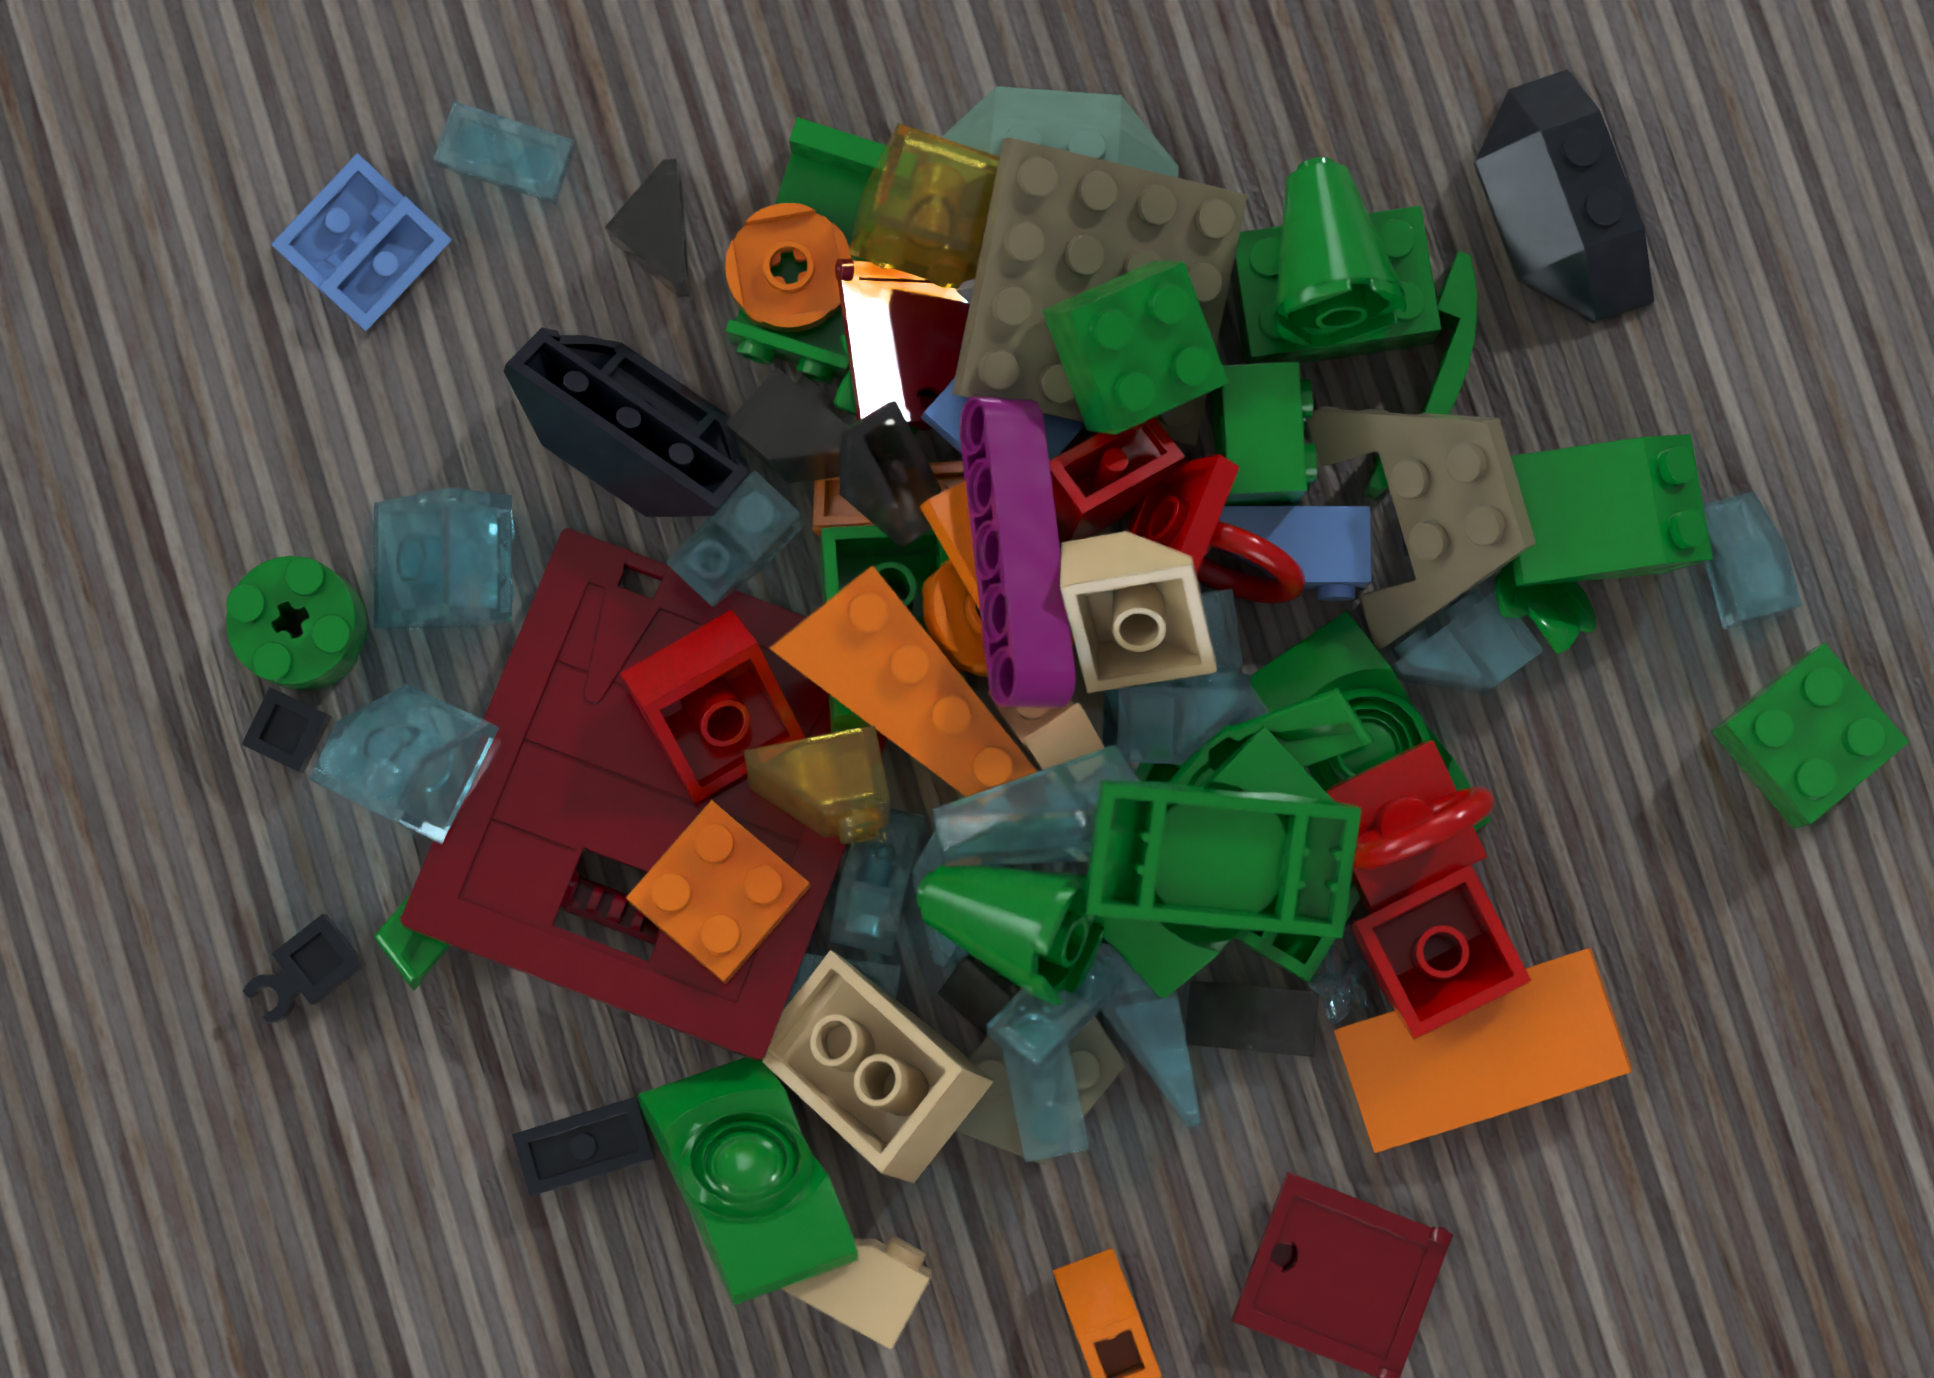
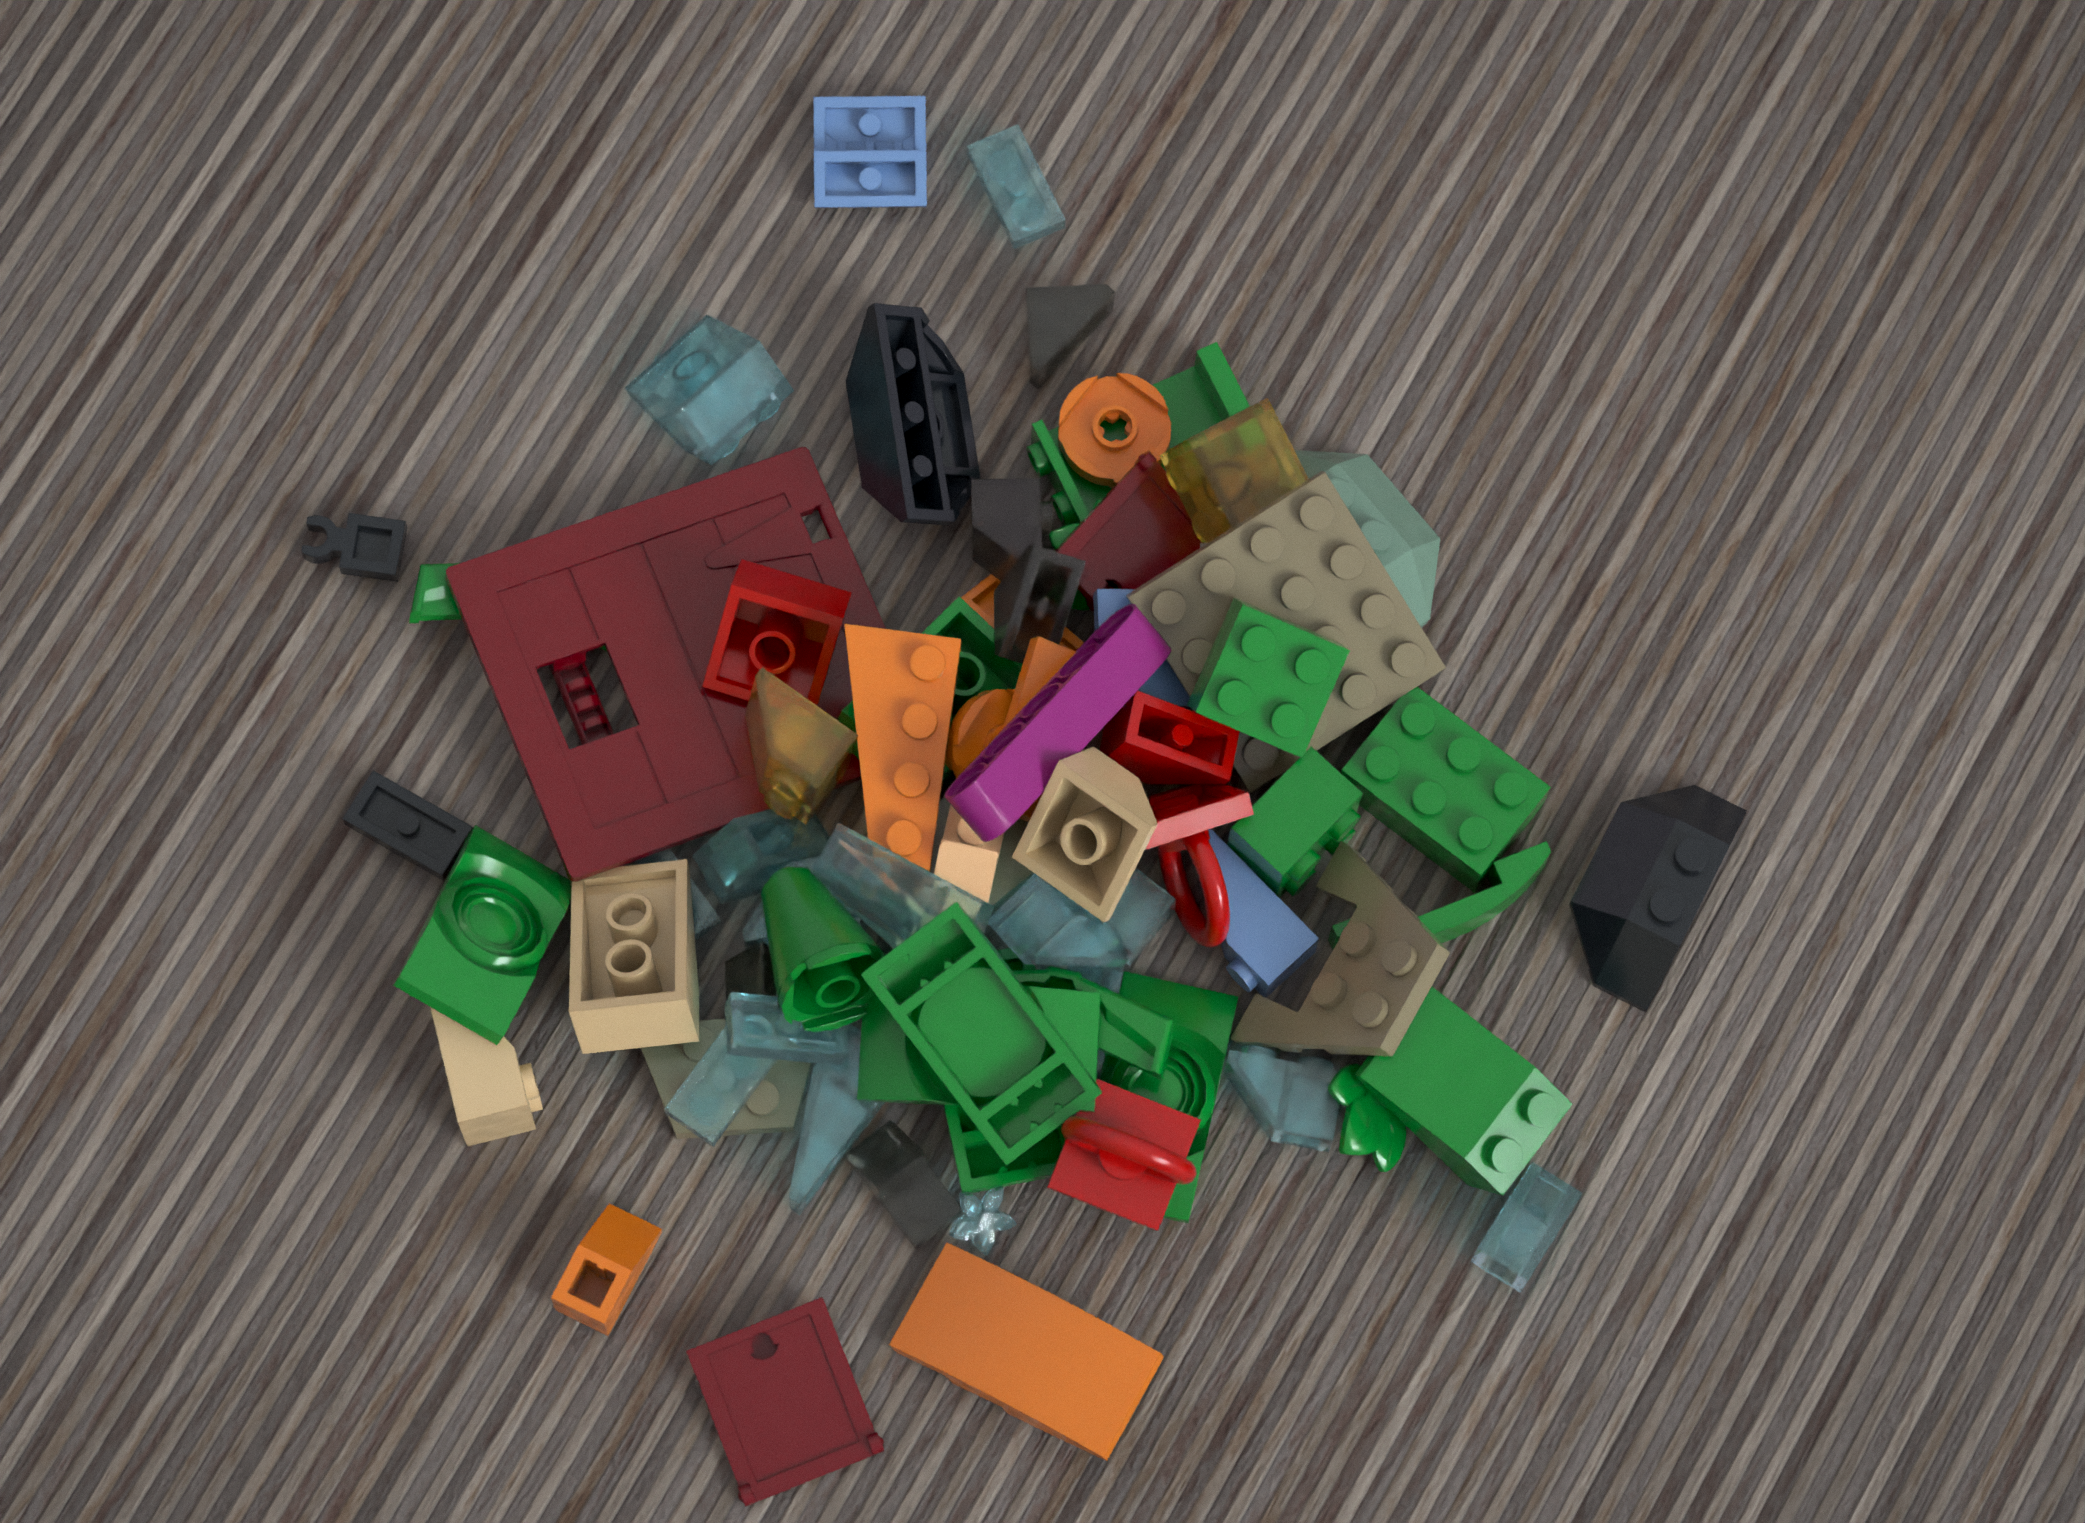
camera: 40 degrees right, 10 degrees down
(262, 610) = (573, 304): green brick -> none
(286, 730) = (504, 392): black plate -> none
(406, 759) = (556, 479): clear light blue slope -> none
(718, 892) = (657, 752): orange plate -> none
(736, 540) = (901, 558): clear light blue slope -> none
(1332, 260) = (1447, 753): green cone -> none
(1440, 952) = (1064, 1252): red slope -> none
(1809, 736) = (1448, 1375): green brick -> none

